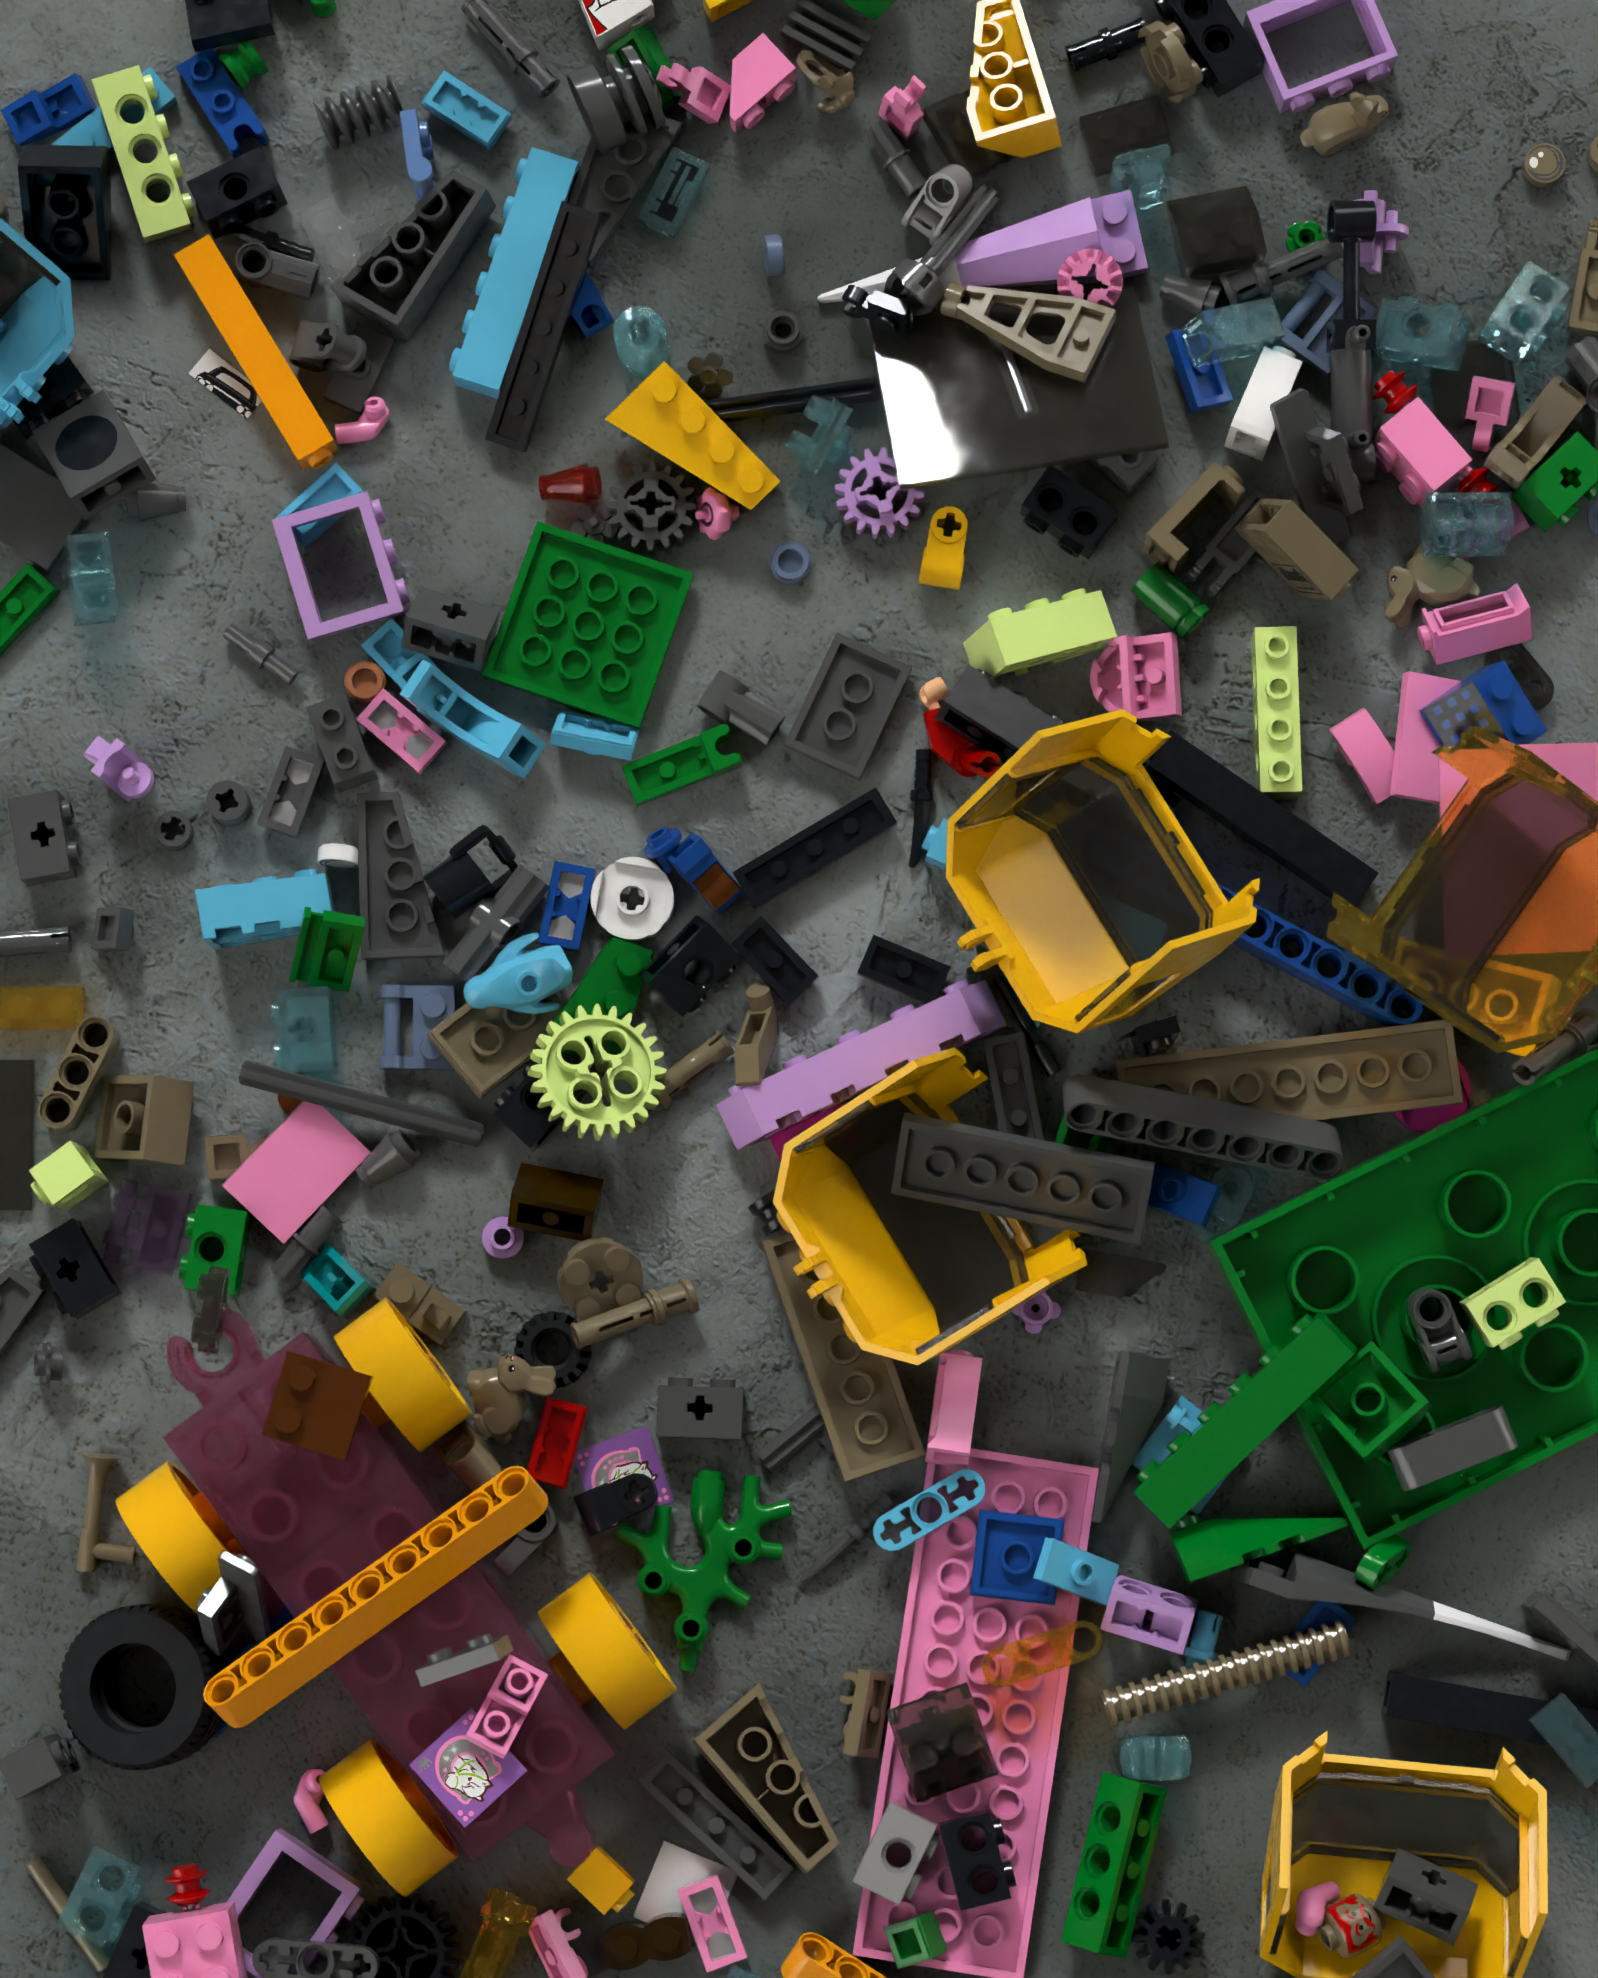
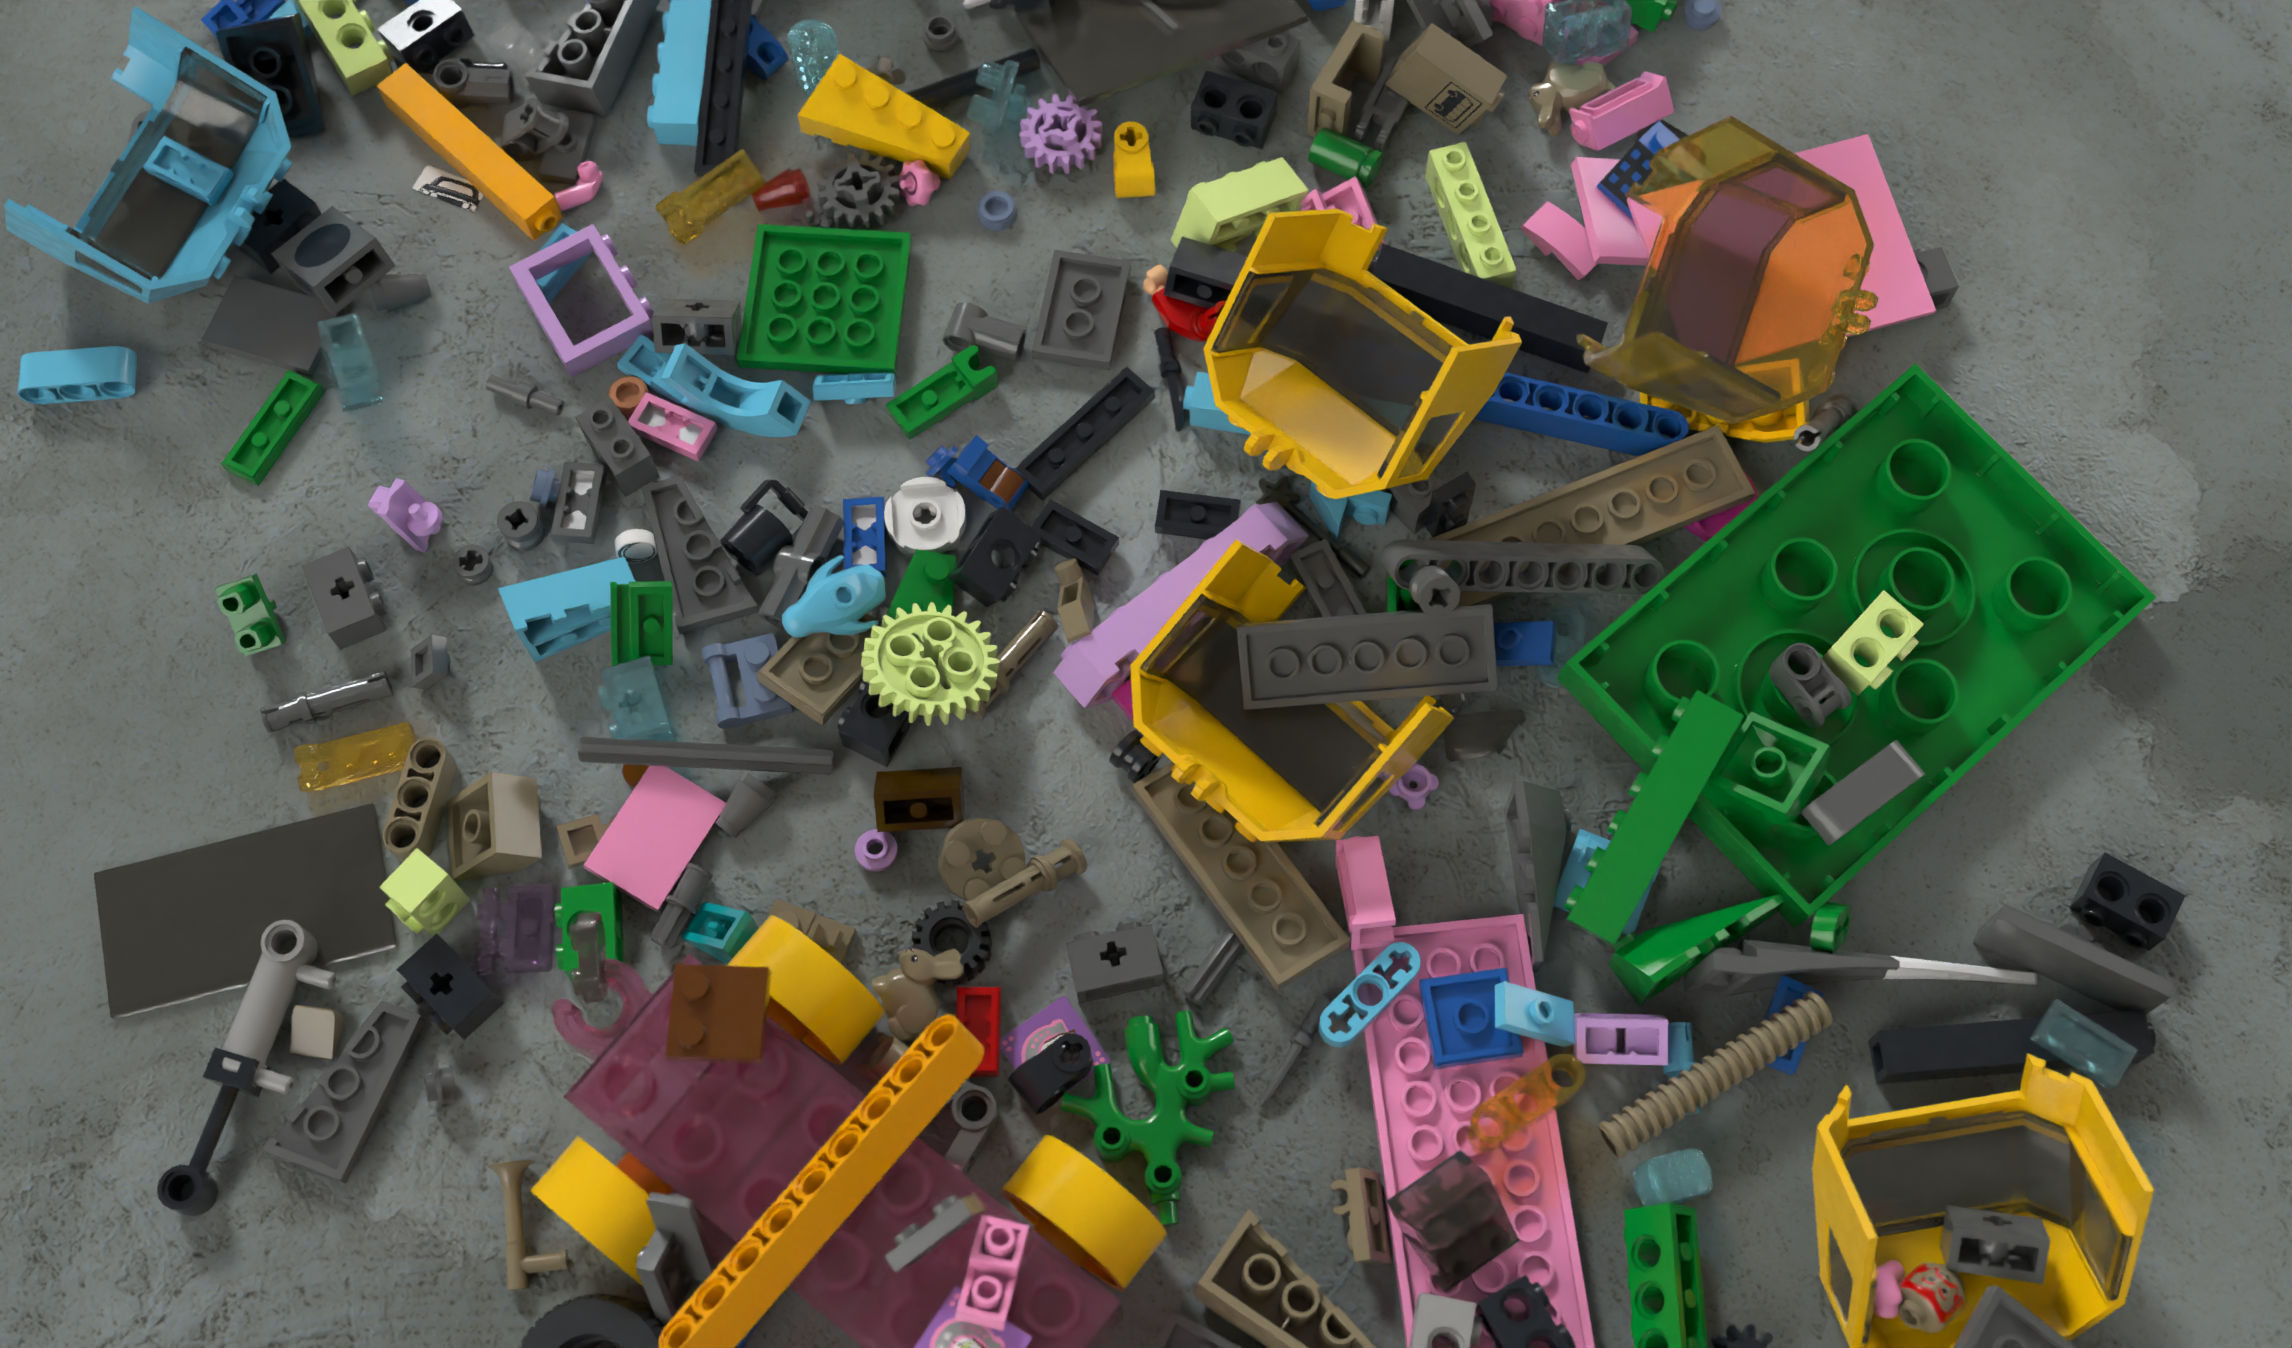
camera: 20 degrees left, 15 degrees down
(261, 767) = (545, 487): none -> sand blue plate
(497, 475) = (709, 197): none -> clear yellow plate
(1100, 1142) = (1427, 583): none -> dark grey wheel

